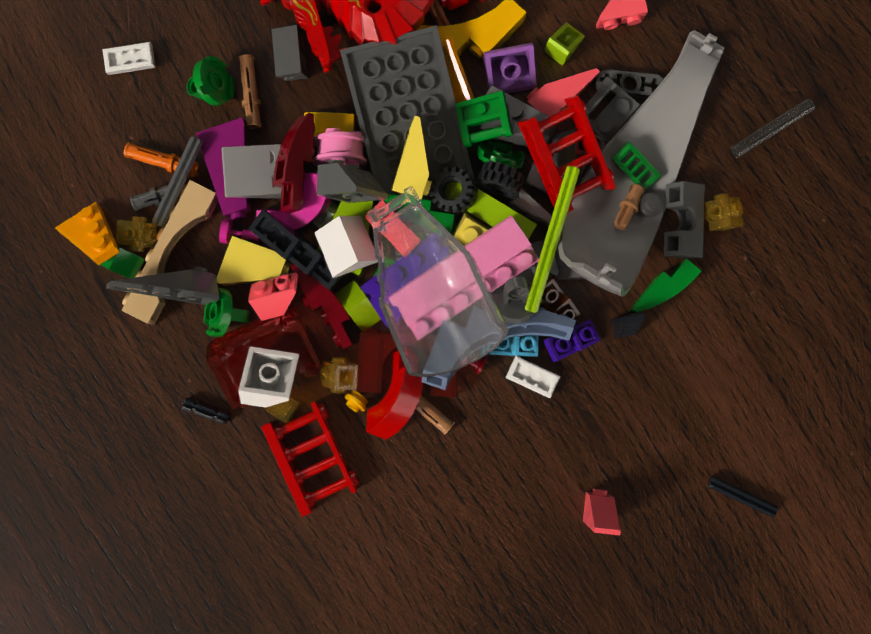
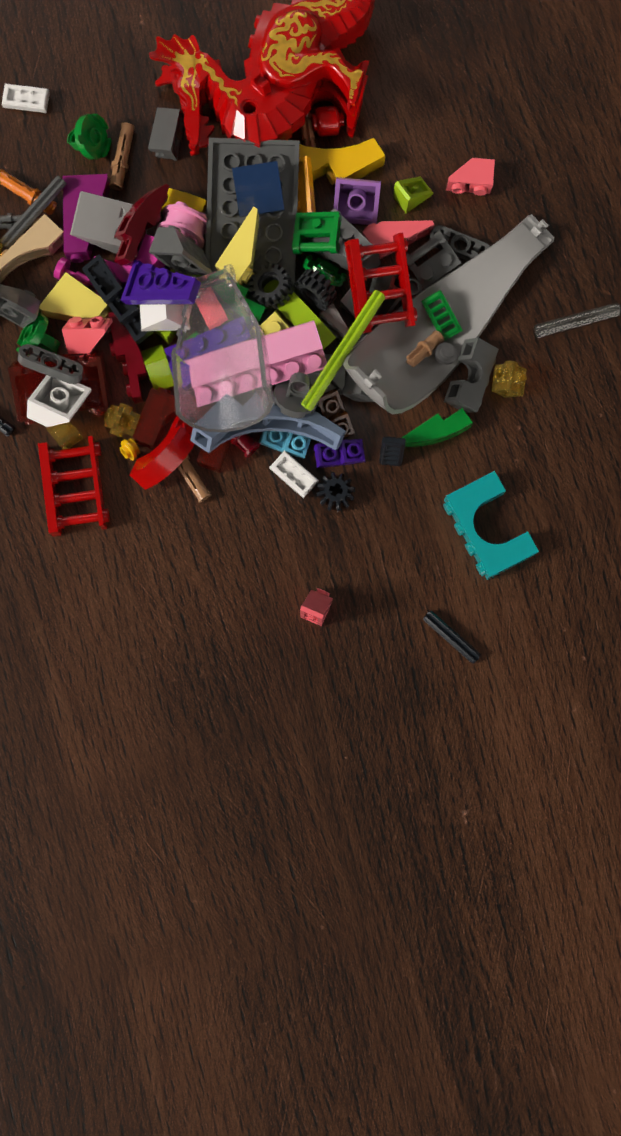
camera: 20 degrees right, 5 degrees down
(256, 349) = (32, 362): none -> dark grey beam
(339, 230) = (158, 286): none -> dark purple wing
(409, 90) = (258, 188): none -> dark blue slope
(586, 390) = (339, 499): none -> black gear
(716, 359) = (491, 558): none -> teal arch

